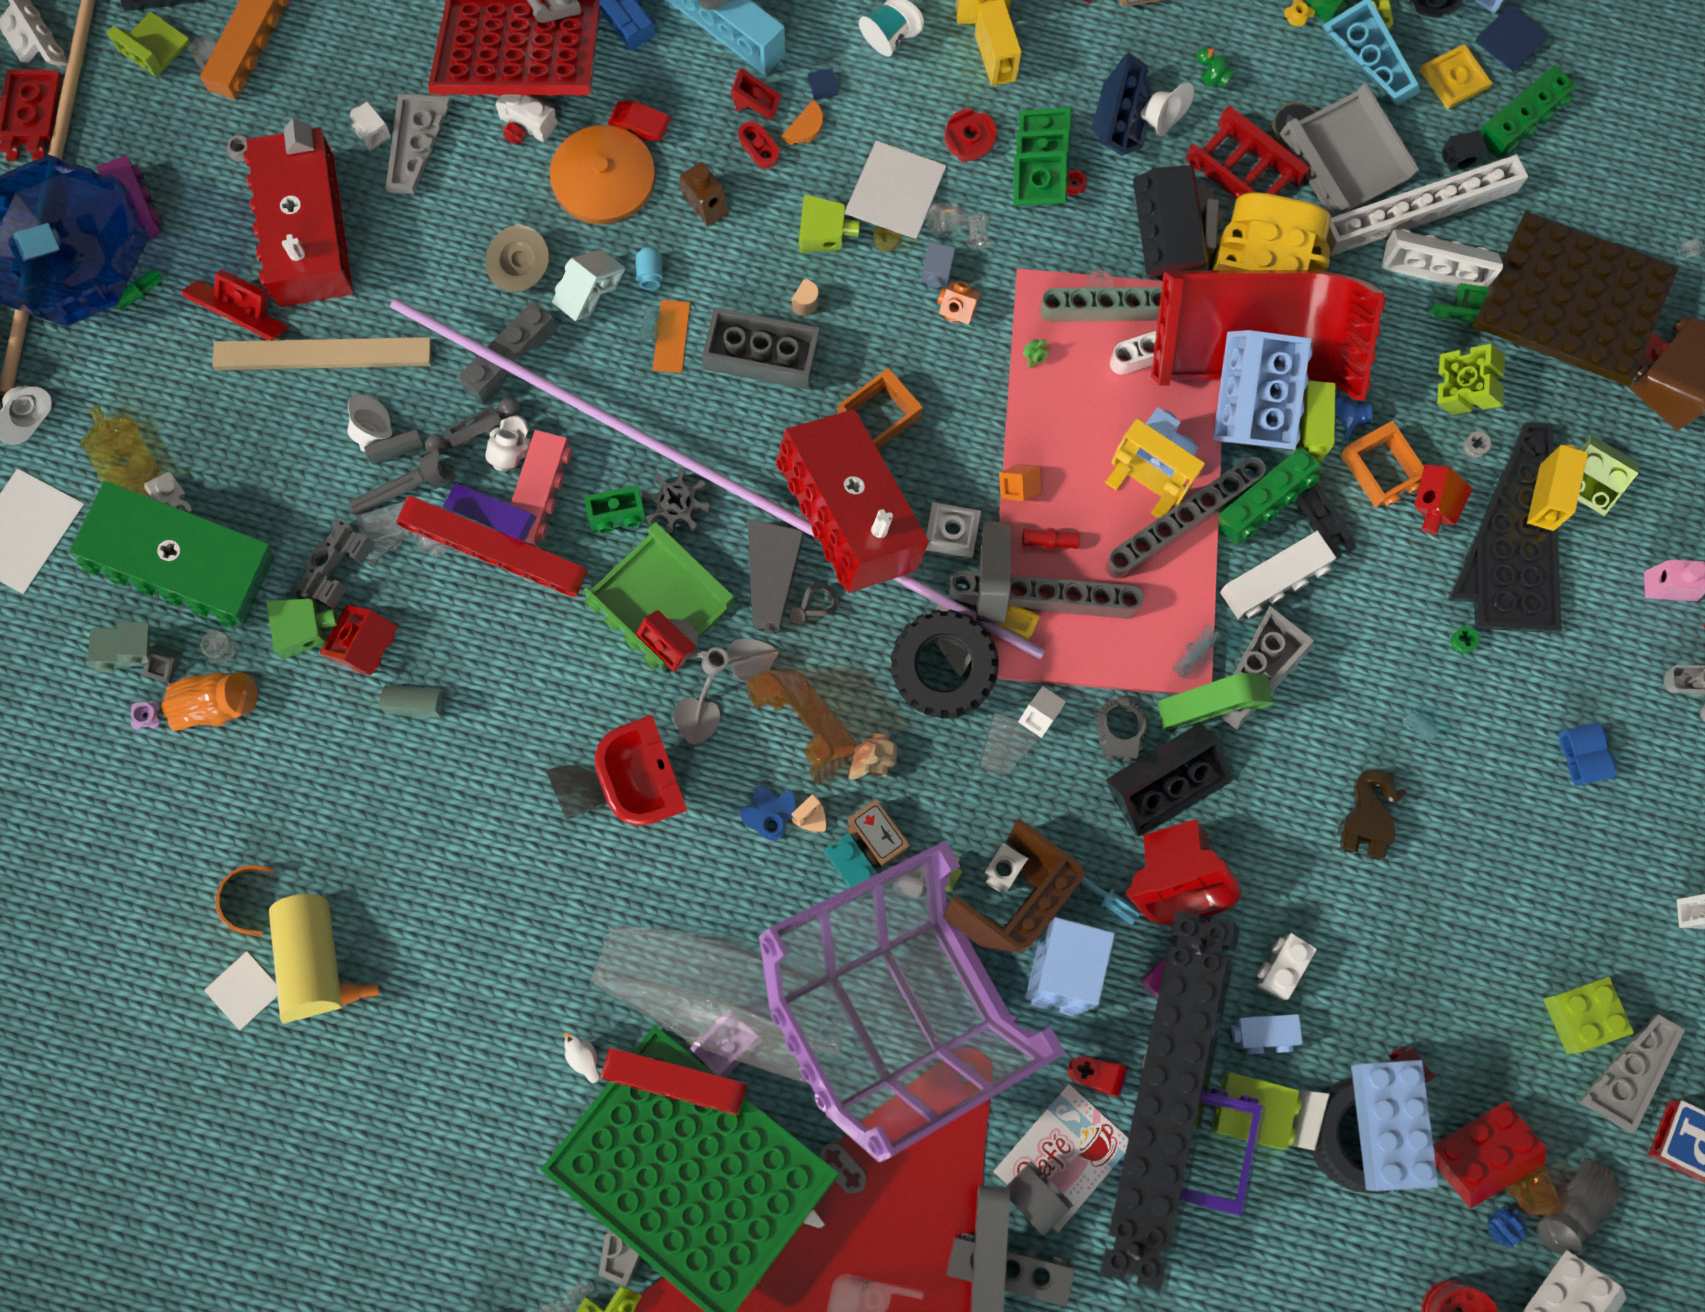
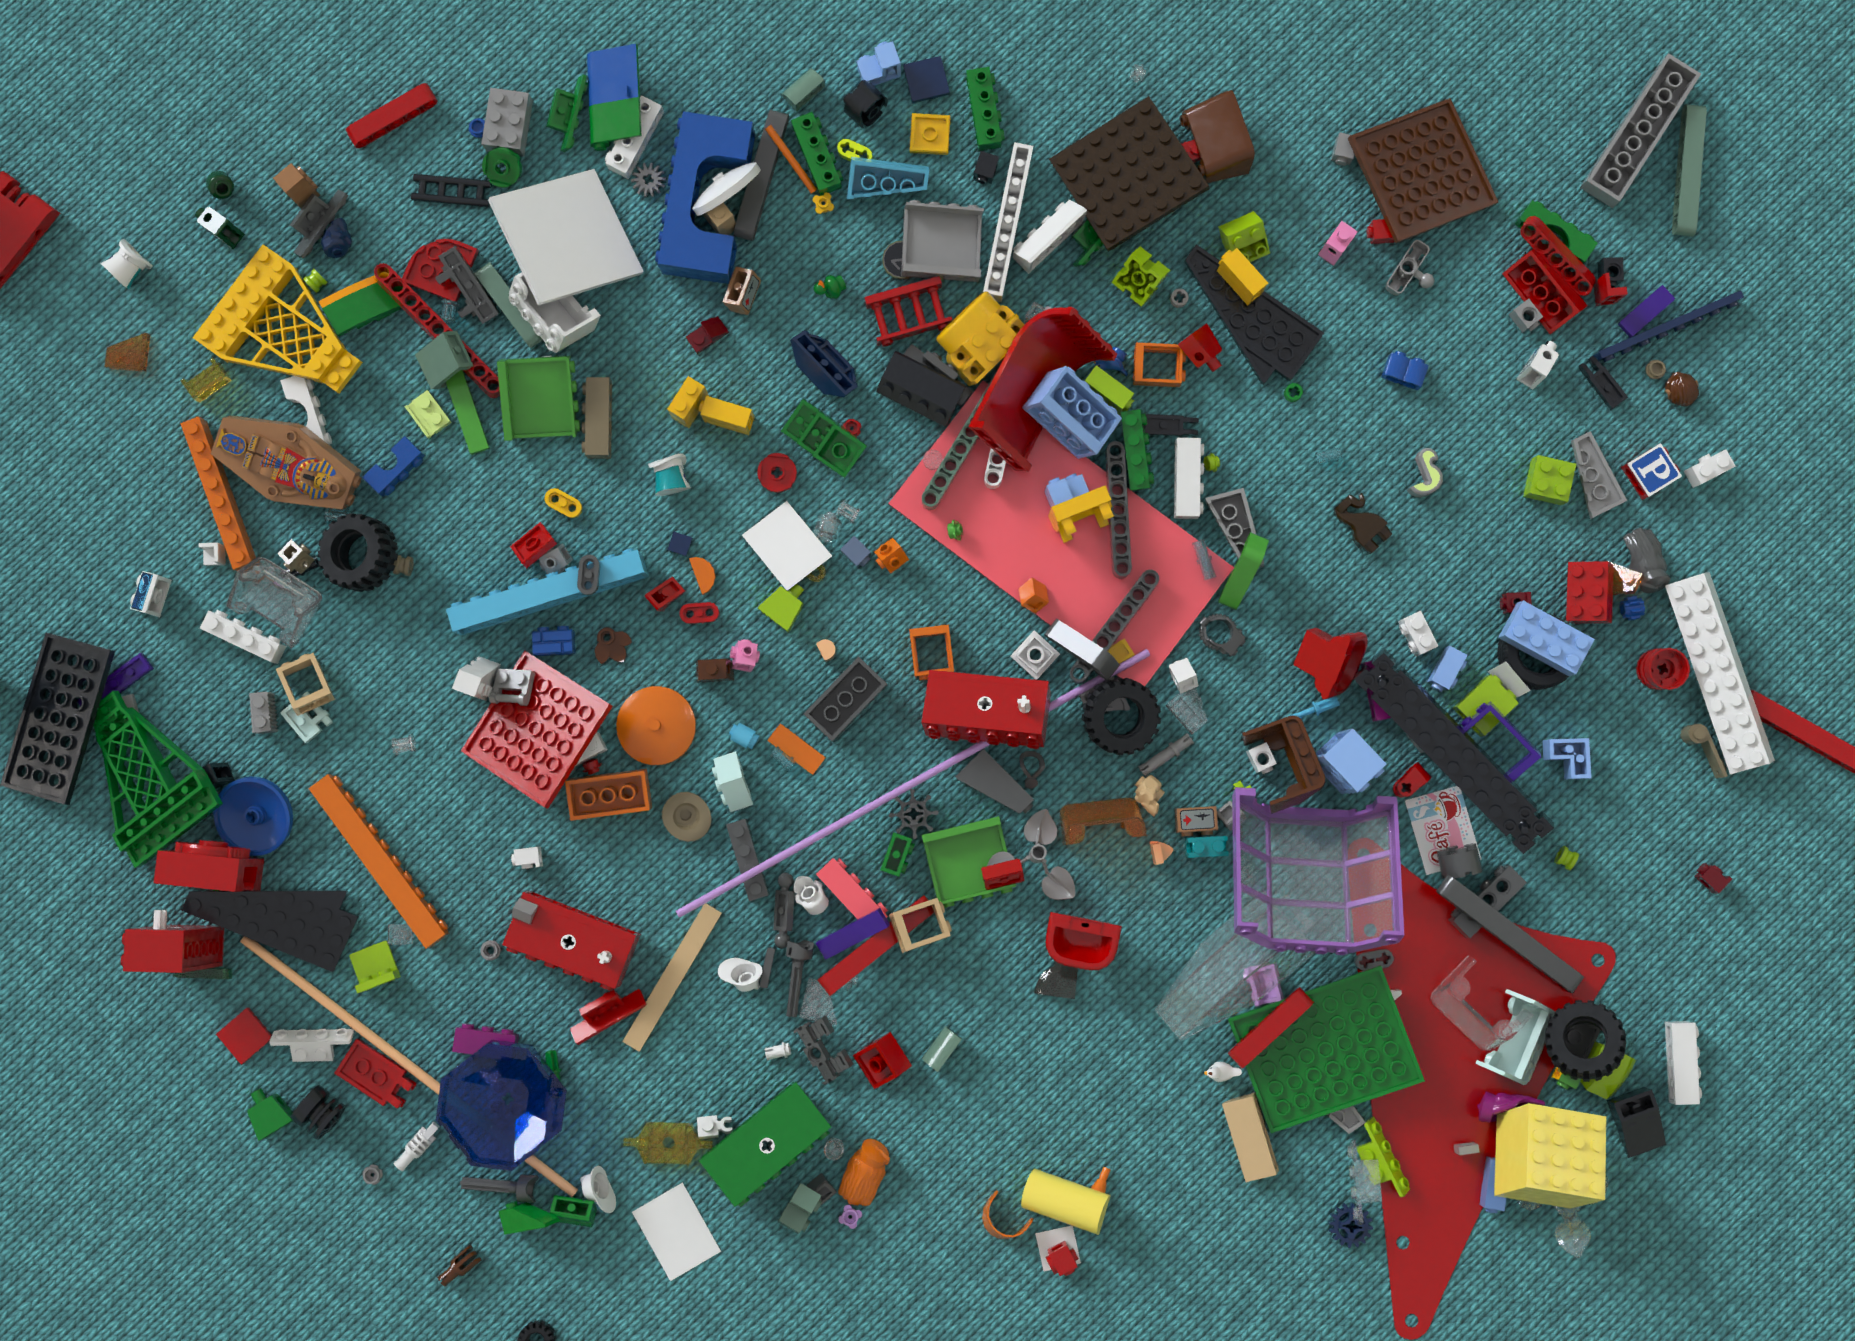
camera: 55 degrees left, 10 degrees up
(37, 242) = (487, 1118): medium azure brick -> none
(229, 1001) = (1062, 1259): none -> red brick
(298, 625) = (850, 1091): bright green torso -> none
(305, 521) = (778, 1051): none -> white pin
(414, 136) = (555, 833): light grey wing -> none
(491, 164) = (608, 794): none -> orange brick
(509, 574) = (901, 931): none -> tan window
(519, 1147) = (1250, 1137): none -> tan brick
(641, 119) = (634, 680): red slope -> none
(662, 82) = (614, 647): none -> reddish brown plate
(740, 214) = (744, 655): none -> bright pink brick
(768, 809) = (1139, 874): blue plate -> none
(934, 751) = (1172, 750): none -> light grey pin
(1050, 538) = (1080, 600): red pin -> none
(1168, 107) = (838, 337): white piece -> none
(1169, 778) = (1268, 626): black slope -> none
(1273, 1264) = (1574, 754): none -> light blue brick
(1315, 594) = (1211, 462): none -> lime plate
(1489, 861) = (1430, 473): none -> light grey animal

